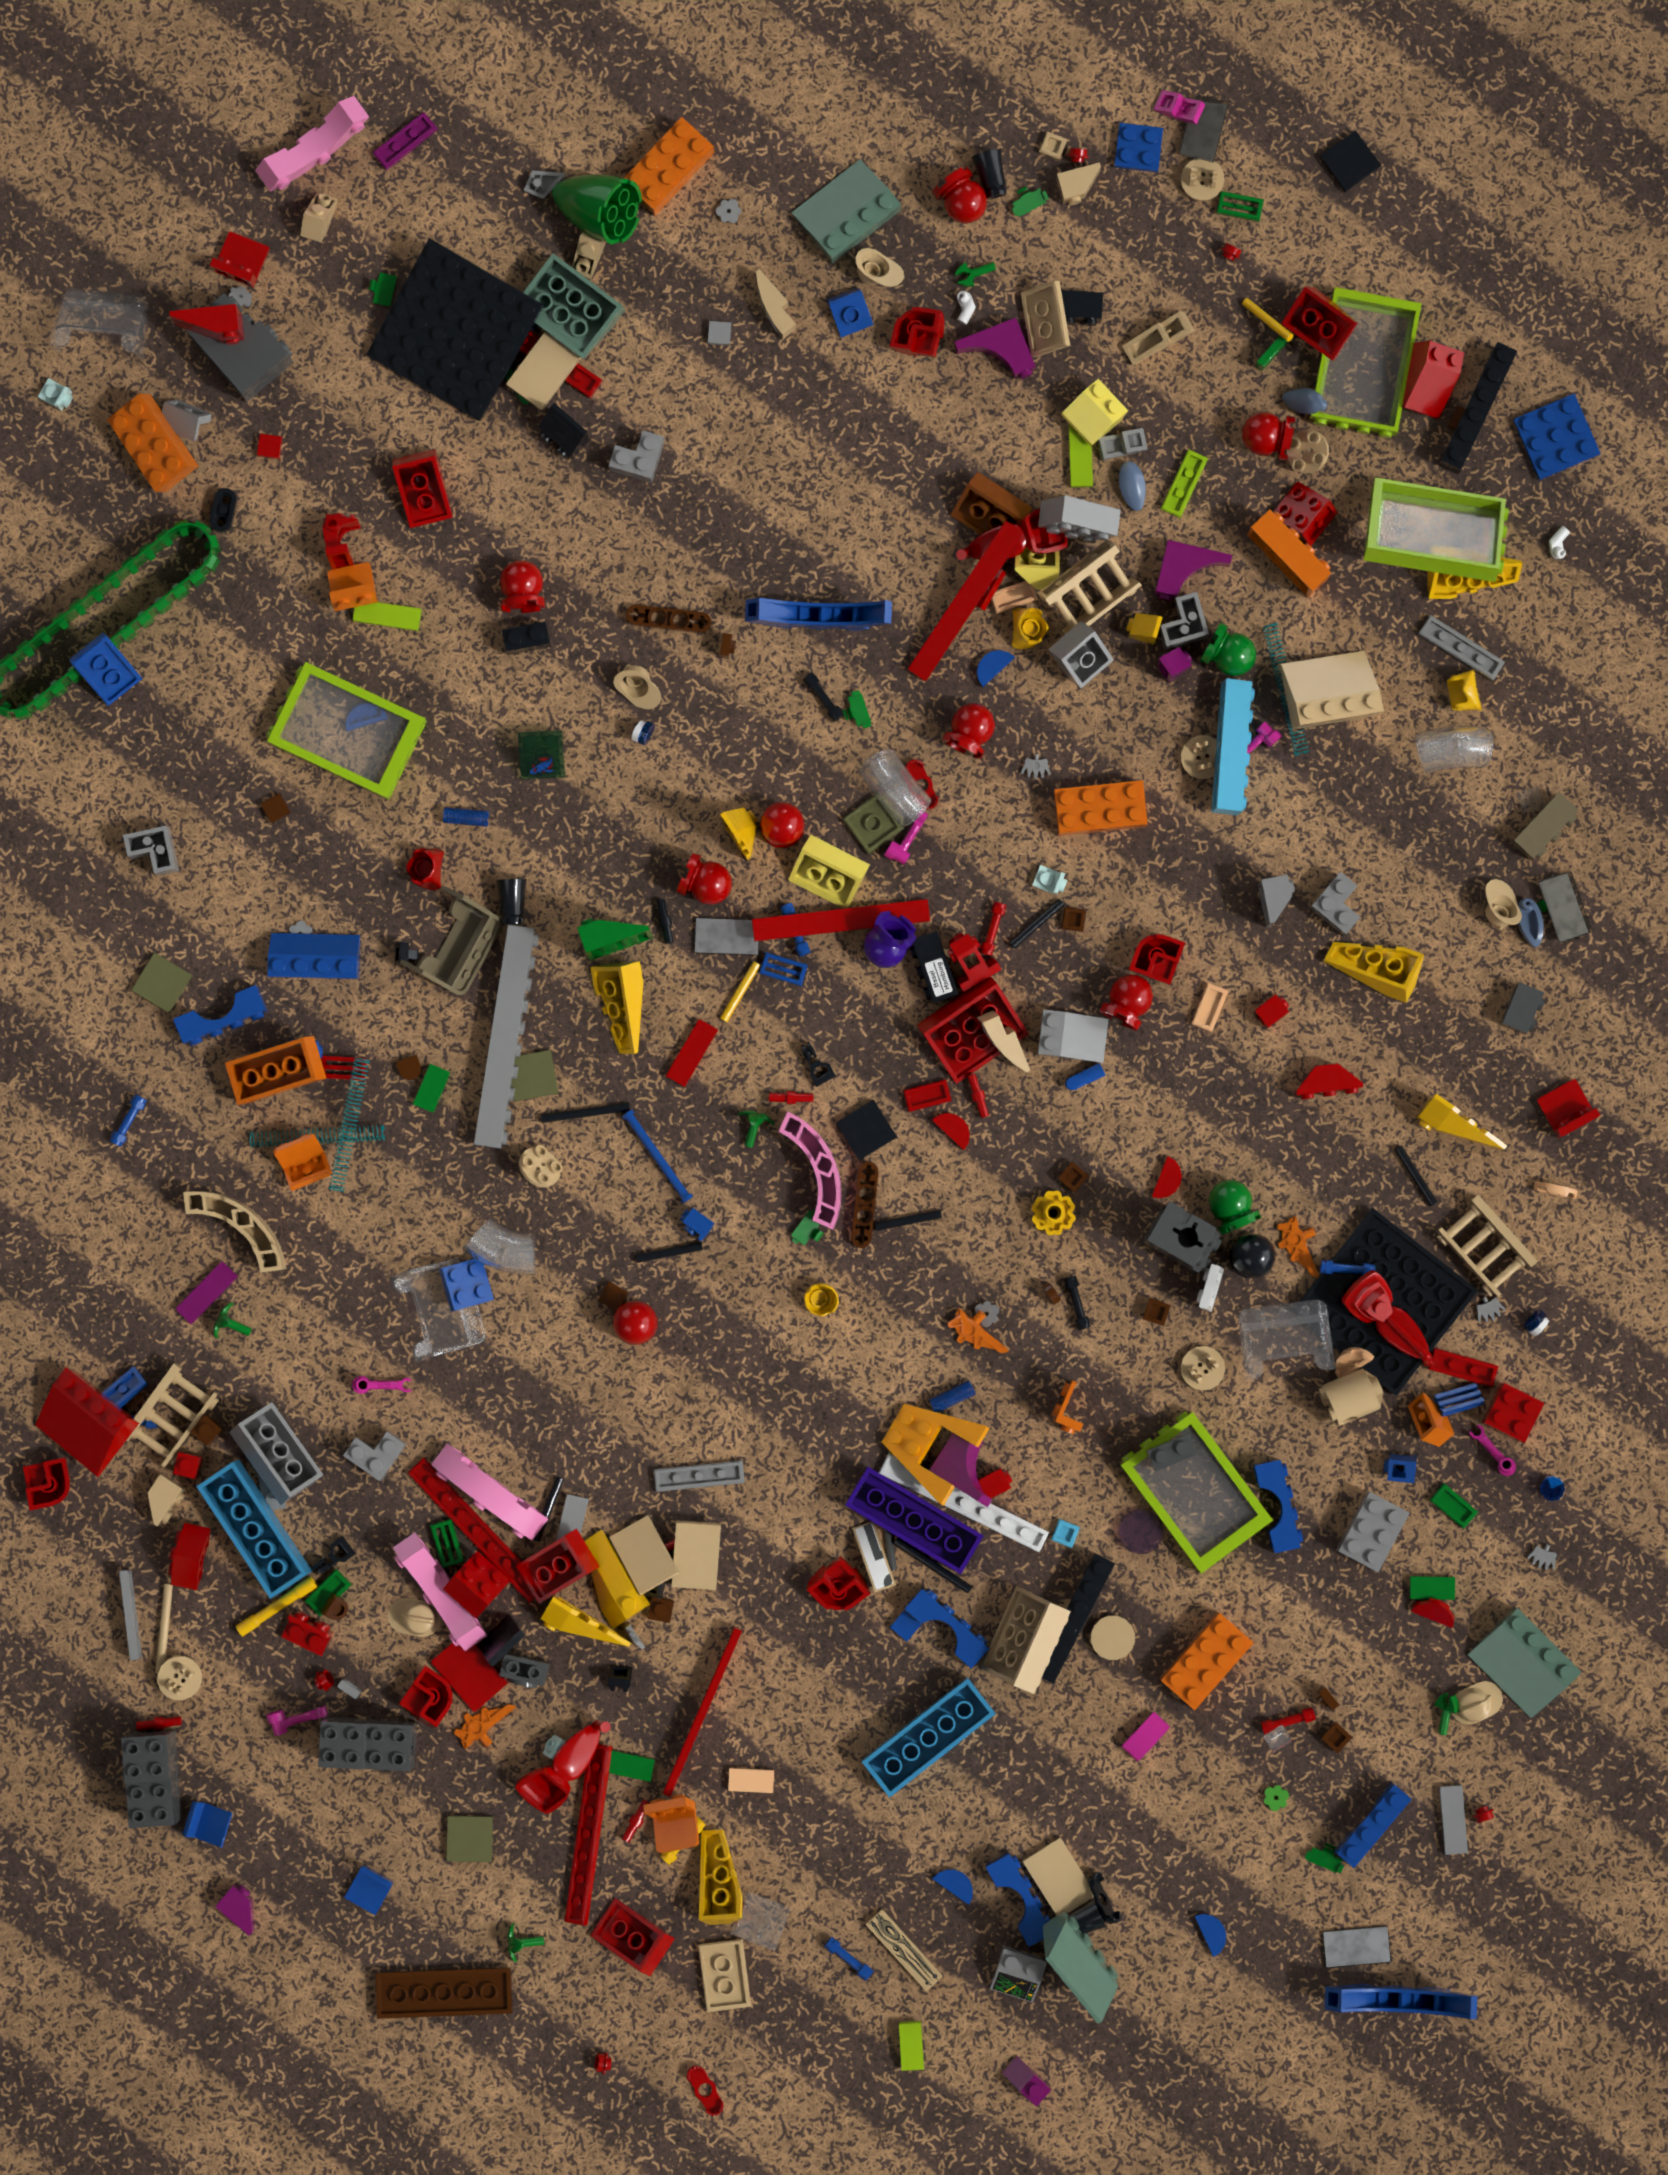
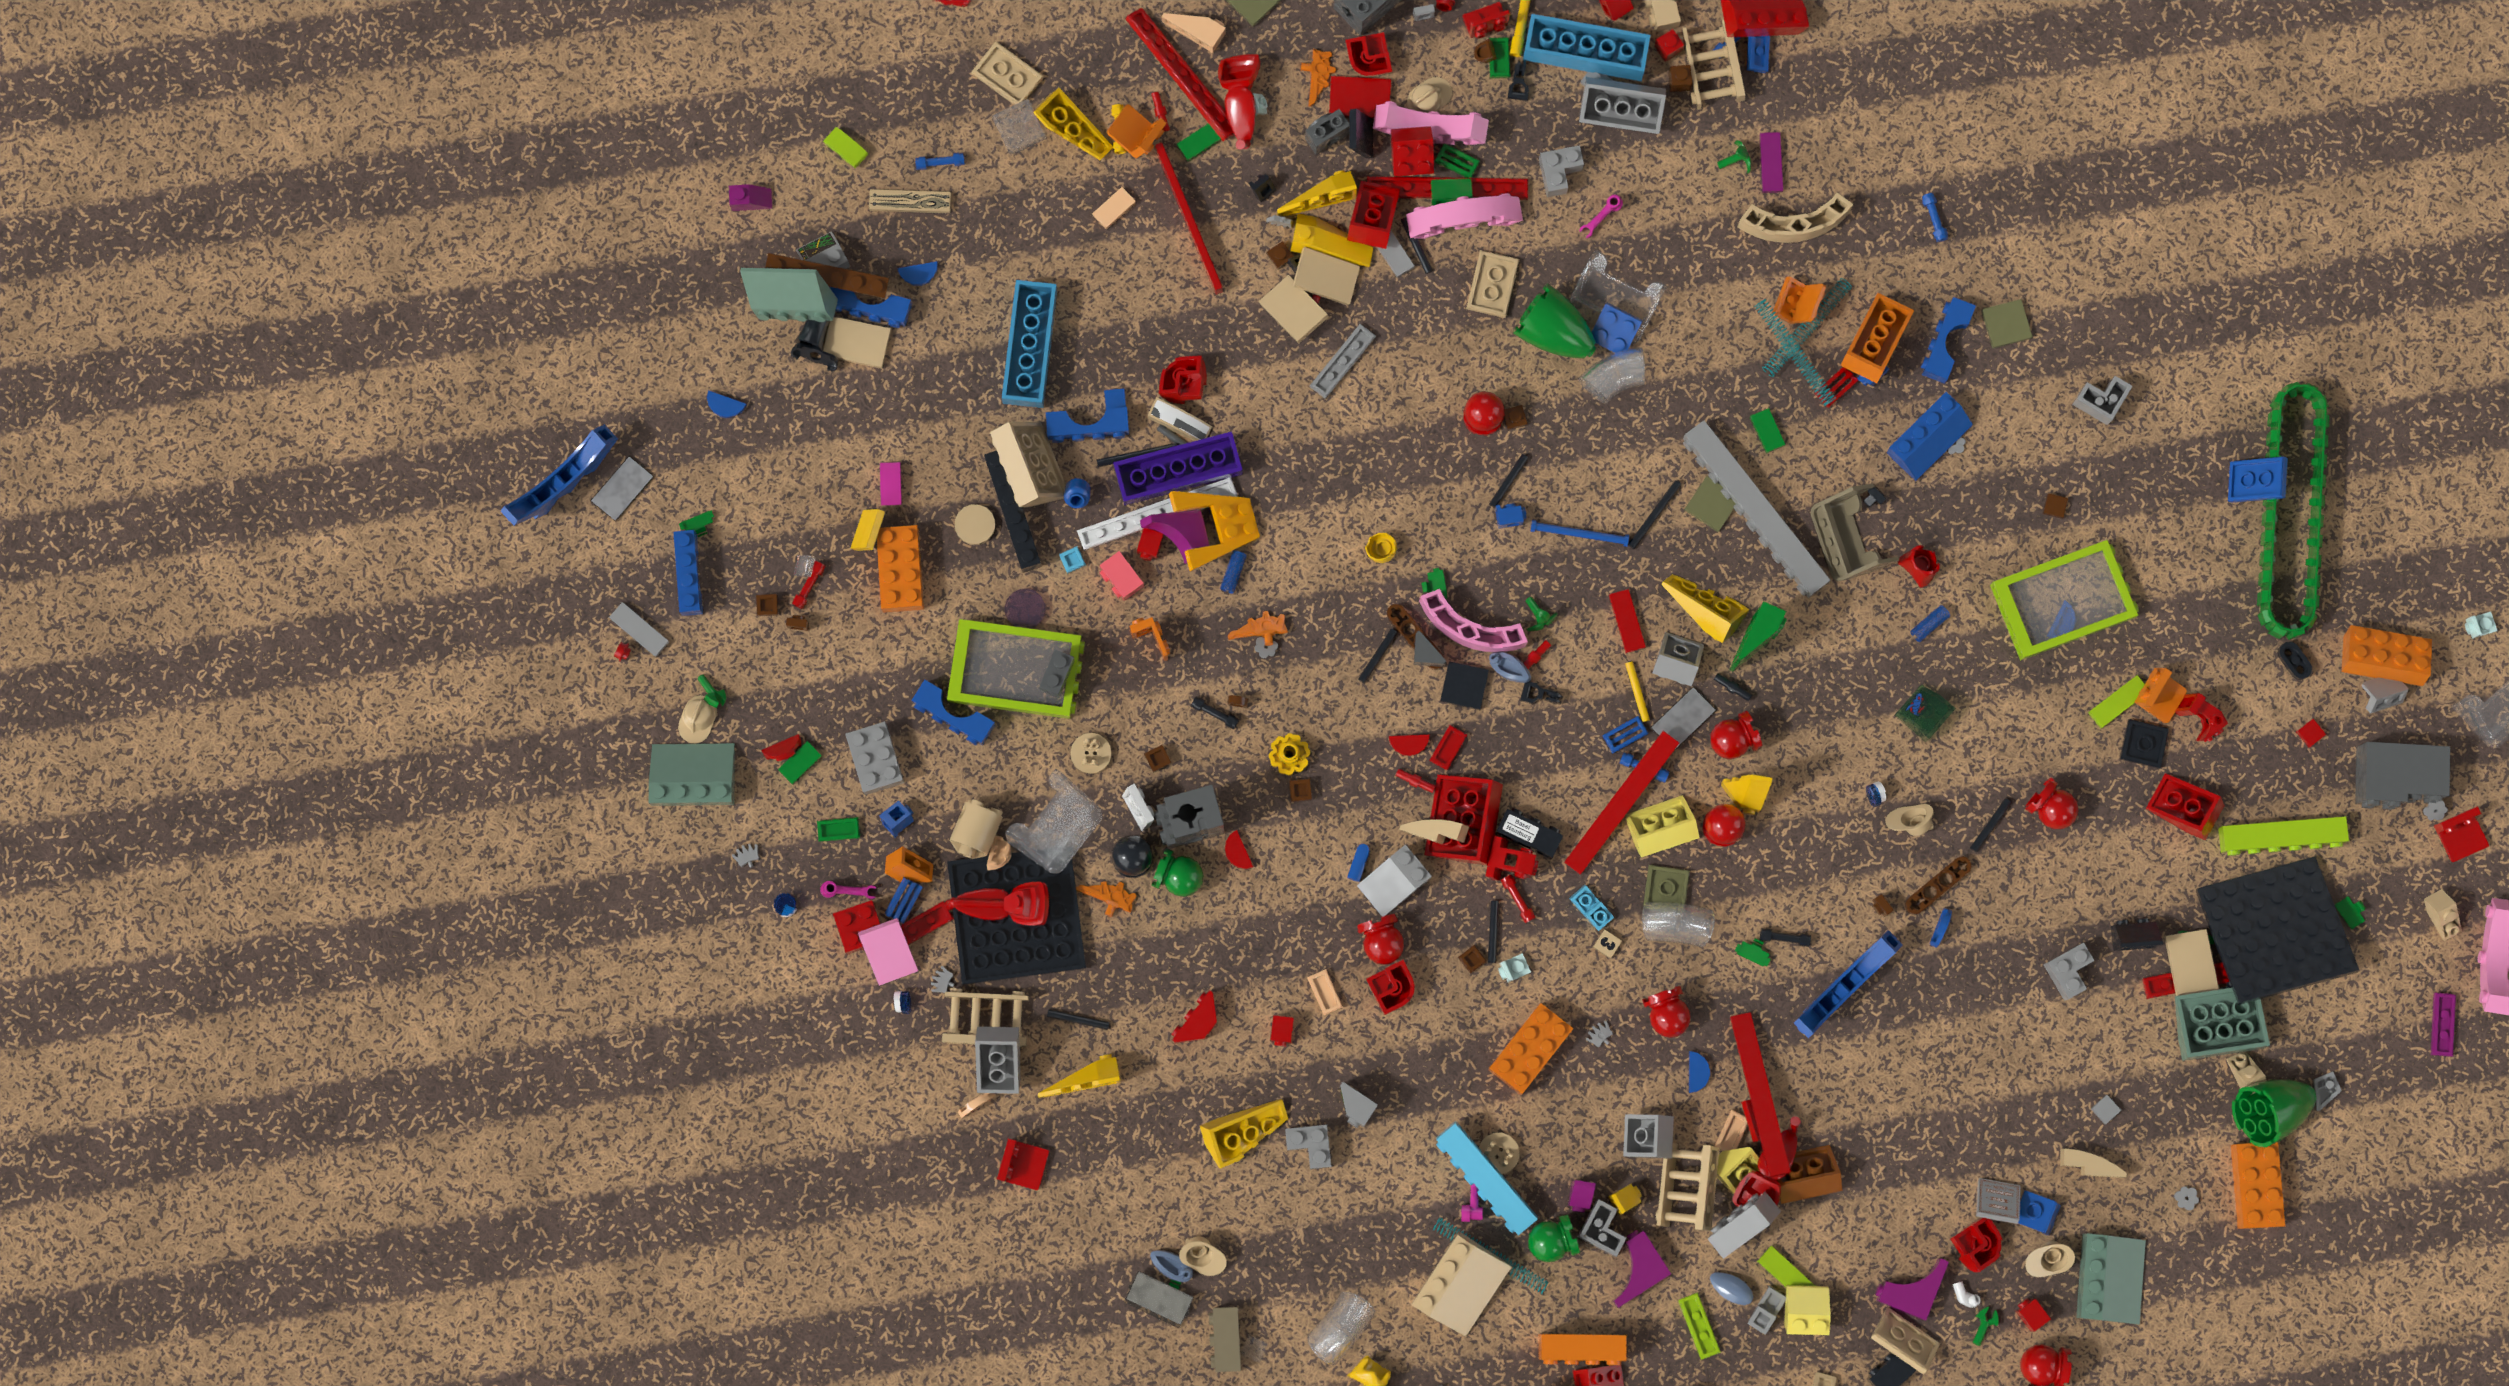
camera: 130 degrees right, 5 degrees down
(216, 322) = (2429, 771): red slope -> none
(372, 393) = (2283, 835): none -> lime brick
(402, 565) = (2144, 744): none -> black tile
(409, 1067) = (1795, 429): reddish brown tile -> none
(479, 1524) = (1449, 190): none -> green panel
(510, 1333) = (1556, 326): none -> green cylinder
(511, 900) = (1844, 599): black plant -> none
(521, 1418) = (1492, 284): none -> tan tile
(526, 638) = (2015, 777): black brick -> none
(532, 1169) = (1656, 450): tan plate -> none
(538, 1855) = (1201, 30): none -> light nougat slope
(579, 623) = (1990, 825): none -> black bar
(632, 1937) = (1088, 39): red slope -> none
(684, 984) = (1678, 659): none -> light grey slope
(698, 586) = (1941, 927): none -> blue tile
(818, 1108) = (1509, 667): none -> sand blue arm
(870, 348) = (1998, 1200): none -> light grey tile
(872, 1183) = (1425, 653): none -> dark grey slope
(888, 940) = (1578, 819): dark purple tile -> none
(899, 852) = (1630, 886): dark pink brick -> none
(918, 772) = (1674, 950): red piece -> none
(931, 244) = (2032, 1314): none -> red brick
(944, 866) = (1591, 907): none -> medium azure slope
(960, 827) = (1607, 944): none -> tan tile
(1010, 1580) = (1077, 493): none -> blue head
(1028, 628) = (1700, 1121): yellow hair -> none
(1031, 1949) = (835, 276): none -> reddish brown brick
(1041, 1481) = (1121, 576): none -> coral brick
(1201, 1716) = (867, 530): none -> yellow tile
(1274, 1804) = (764, 524): bright green plant -> none
(1328, 1267) = (1075, 898): blue bar -> none
(1510, 1203) = (998, 1060): none -> light grey brick
(1511, 1371) = (888, 951): none -> bright pink tile
(1522, 1009) = (1118, 1200): dark grey brick -> none

